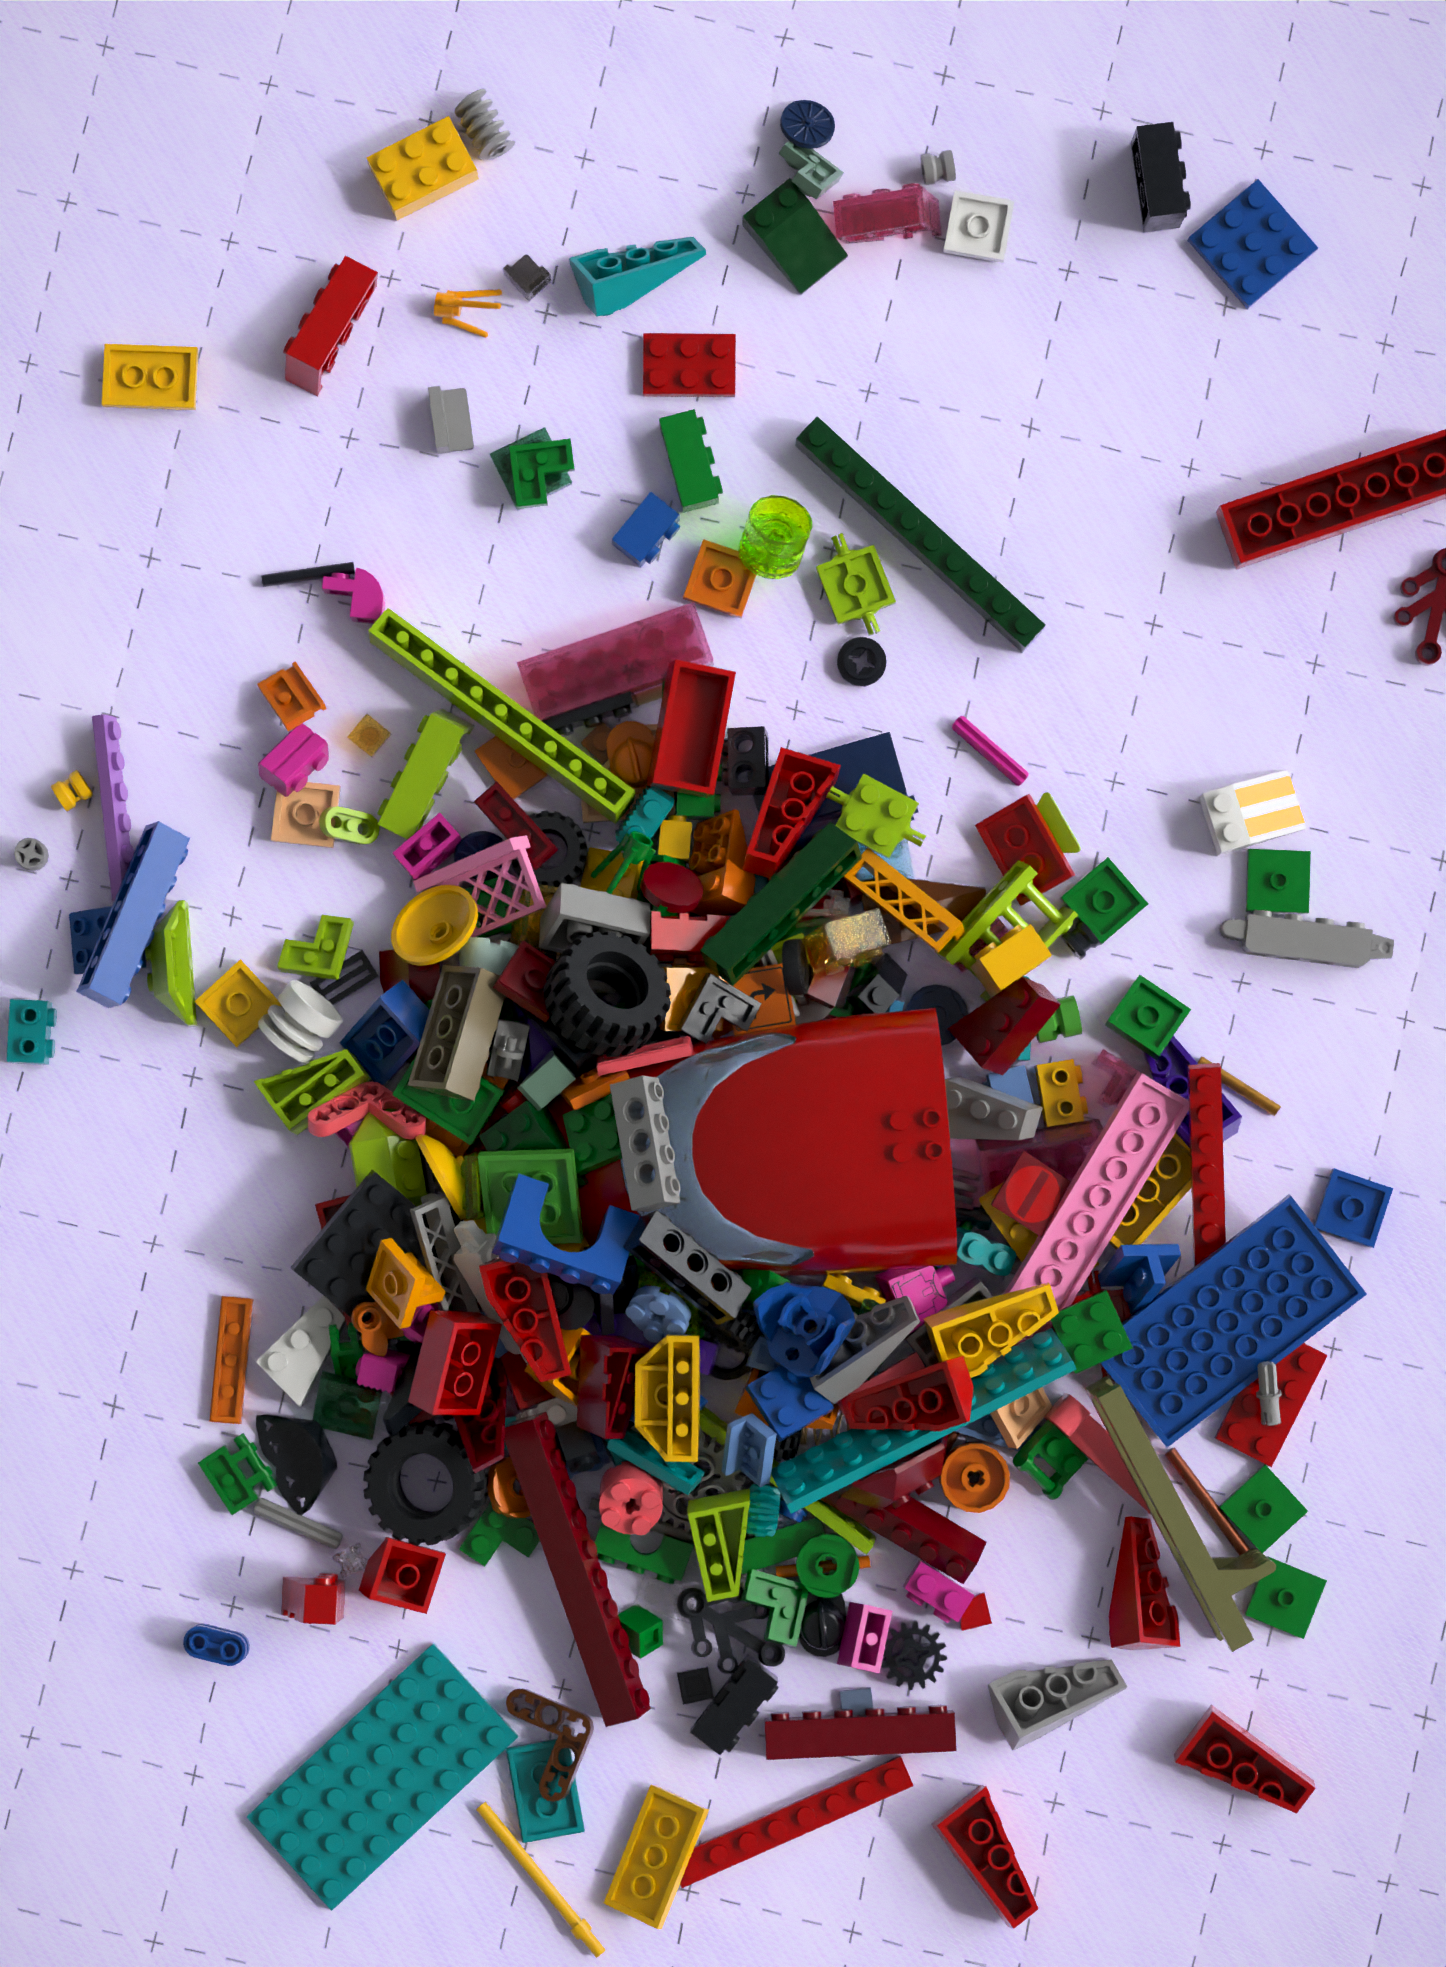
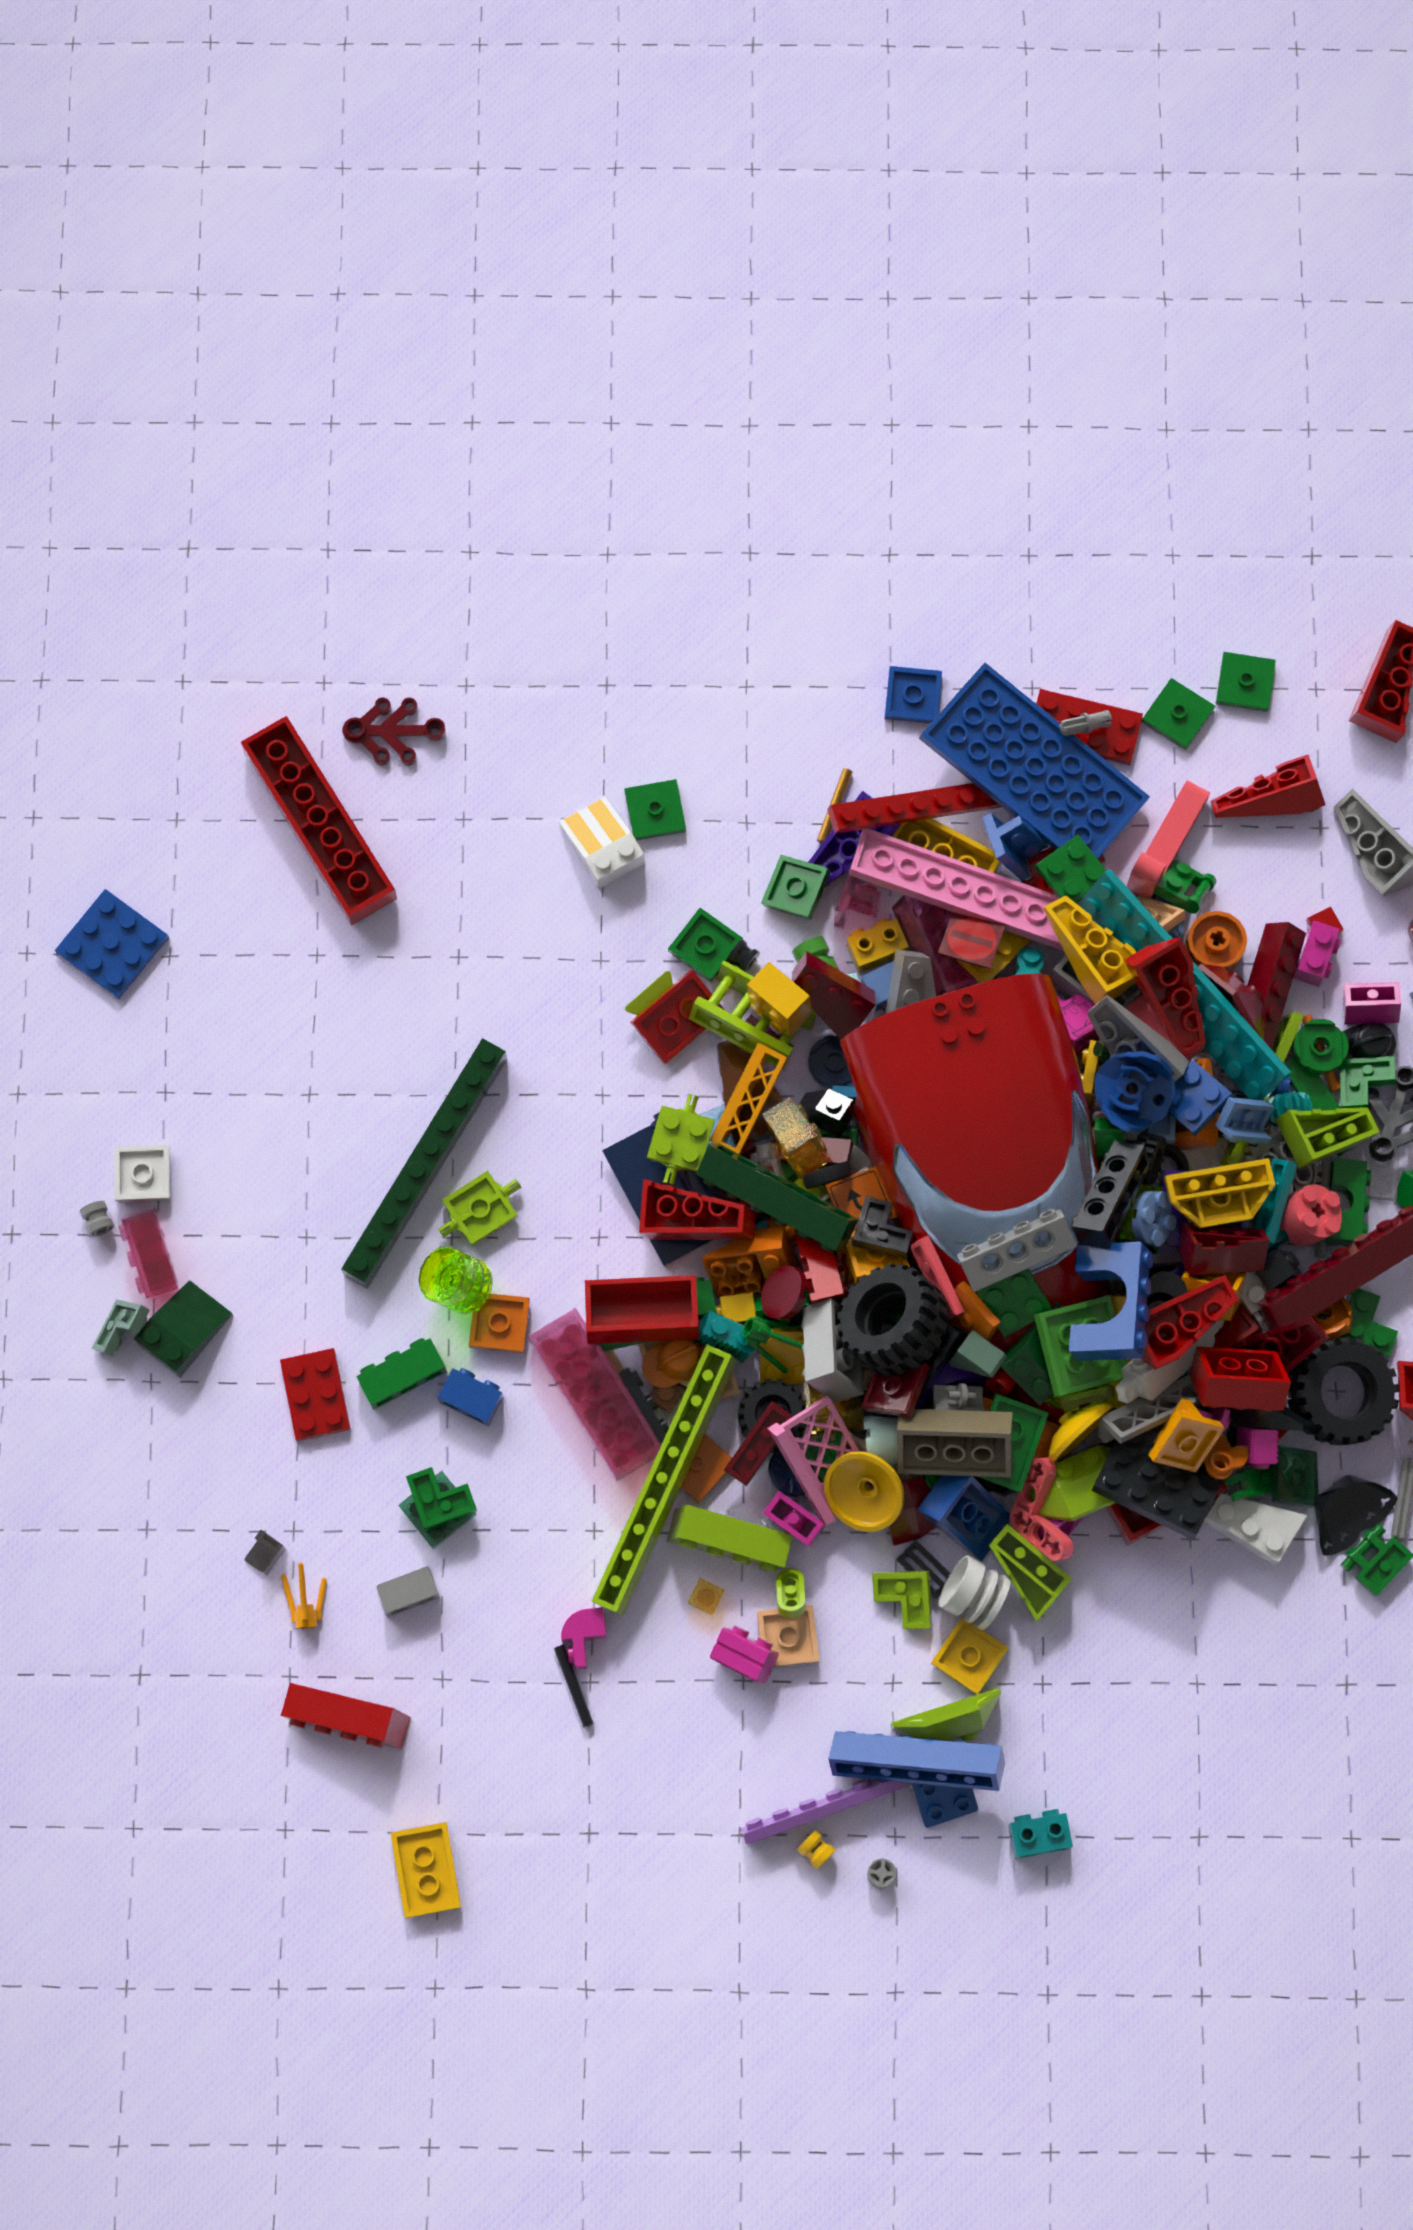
camera: 100 degrees left, 10 degrees down
(231, 1360) = (1280, 1590): orange tile -> none
(291, 696) = (687, 1671): orange plate -> none
(422, 168) = (185, 1667): yellow brick -> none
(482, 127) = (136, 1621): light grey piece -> none
(621, 278) = (248, 1466): teal wedge -> none
(753, 760) = (653, 1257): black brick -> none
(807, 124) = (79, 1339): dark blue wheel -> none
(855, 648) = (536, 1180): black gear -> none
(932, 1648) = (1368, 954): black gear -> none
(990, 750) = (598, 1066): dark pink axle -> none
(1160, 176) = (70, 1028): black brick -> none
(1207, 1501) = (1184, 758): copper bar -> none
(1209, 1578) = (1242, 747): olive piece -> none
(1307, 941) = (701, 775): light grey hinge -> none

